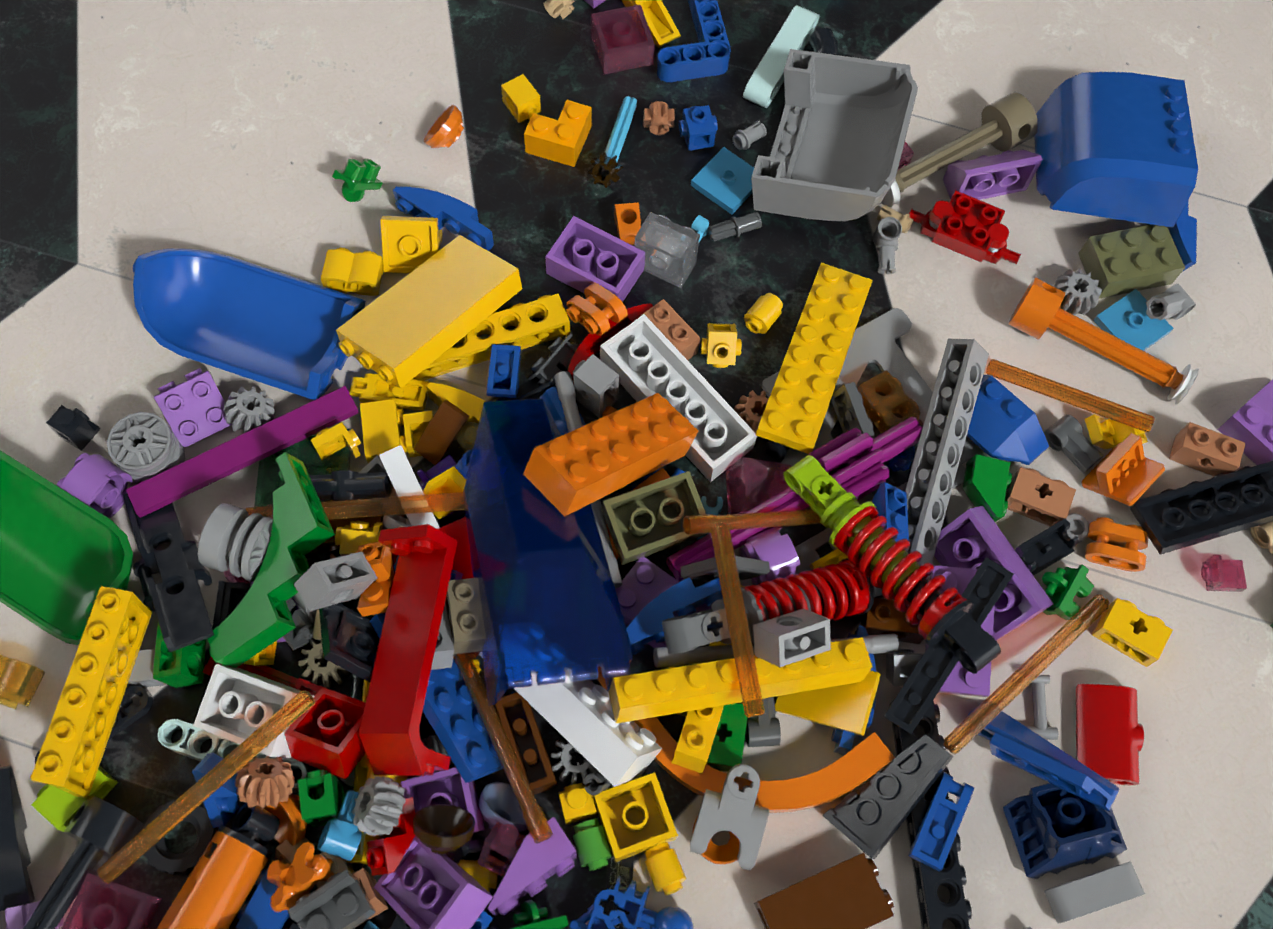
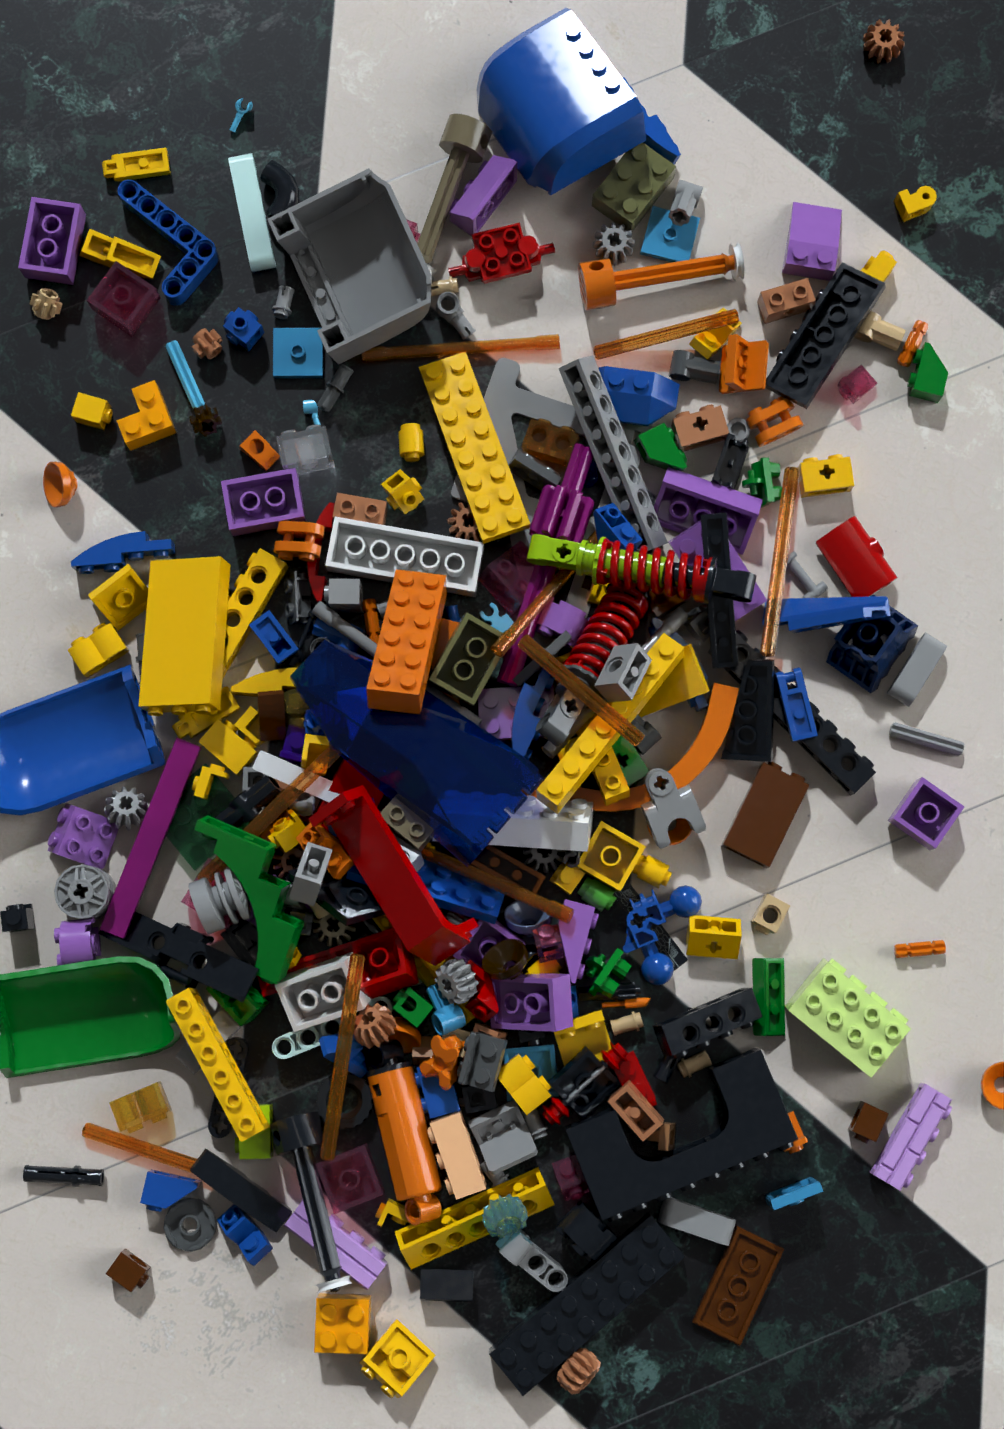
camera: 35 degrees left, 15 degrees up
(358, 178) = (36, 576): green hips -> none
(942, 320) = (540, 342): none -> clear orange piece

